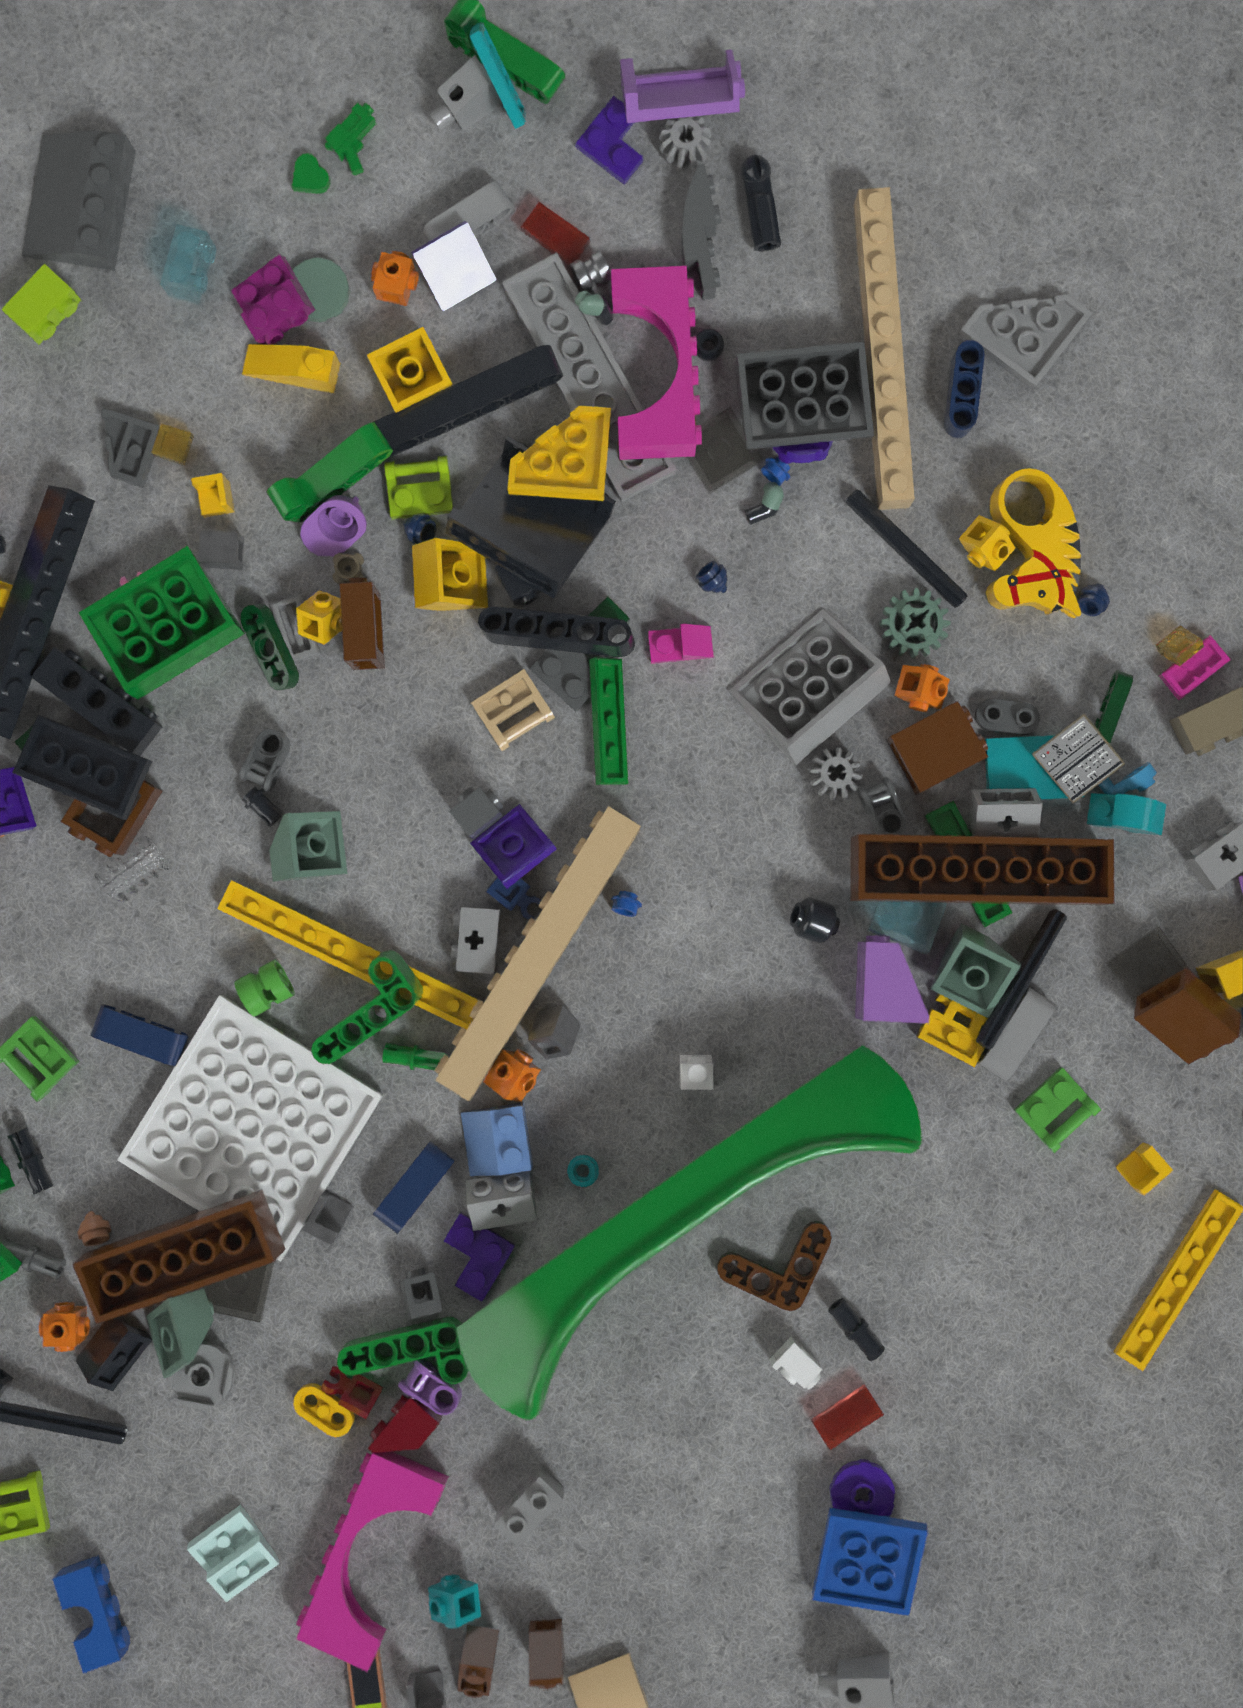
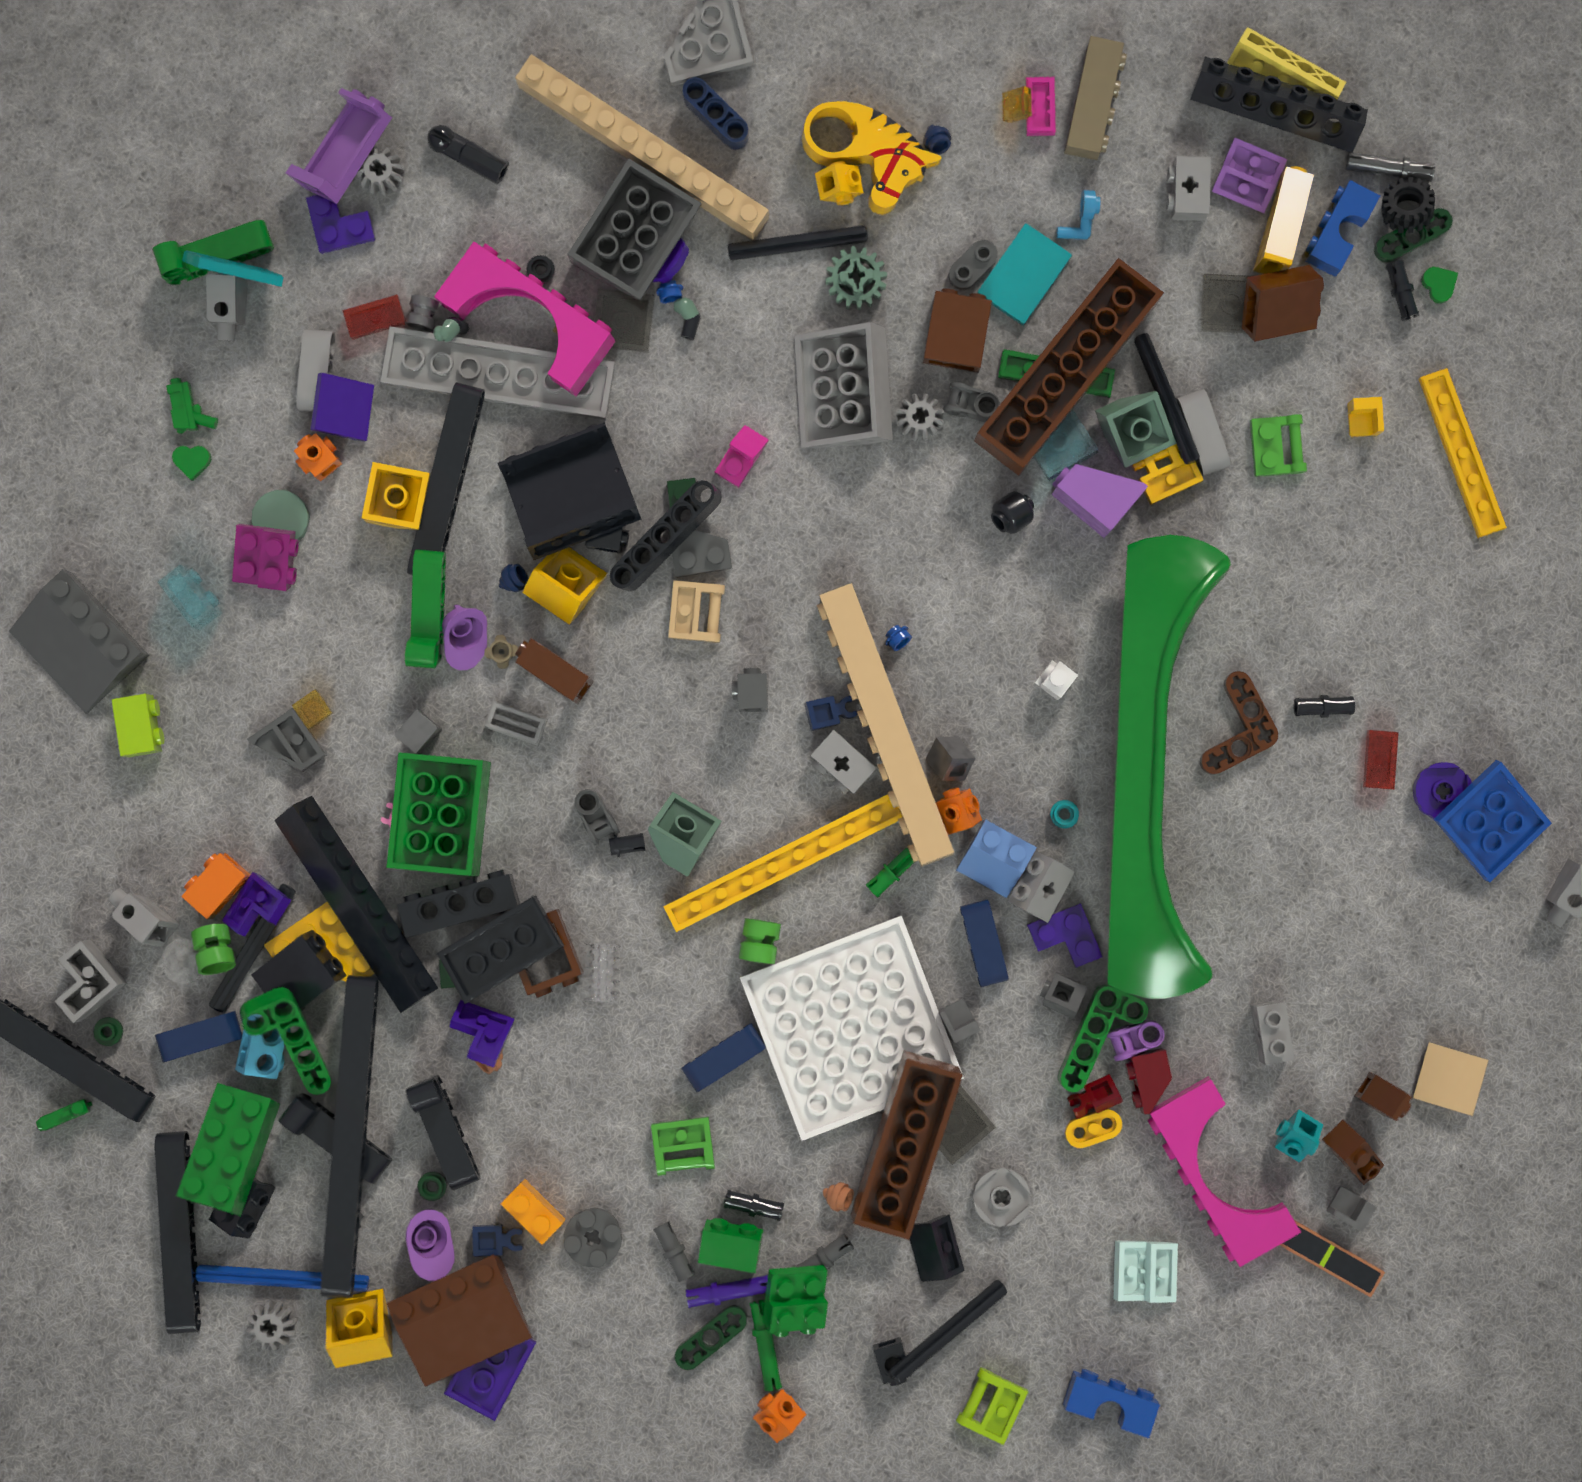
camera: 50 degrees left, 0 degrees up
(72, 1320) = (888, 1258): orange brick -> none
(179, 1329) = (958, 1185): sand green slope -> none
(214, 494) = (373, 707): yellow panel -> none
(281, 652) = (524, 744): dark green beam -> none
(293, 365) = (322, 579): yellow slope -> none
(320, 617) = (524, 696): yellow brick -> none
(364, 1015) = (833, 883): green beam -> none
(422, 497) = (489, 562): lime plate -> none
(513, 846) = (795, 685): dark purple tile -> none
(566, 458) = (547, 433): yellow plate -> none
(608, 721) = (757, 549): green tile -> none
(698, 224) = (447, 209): dark grey slope -> none
(713, 578) = (711, 396): dark blue plate -> none
(796, 1364) = (1316, 766): white brick -> none
(922, 687) = (906, 308): orange brick -> none
(1005, 812) = (1040, 319): light grey brick -> none
(1078, 758) = (1042, 237): light grey tile -> none
(1114, 703) = (1024, 186): dark green beam -> none
(1127, 812) = (1106, 234): teal brick -> none

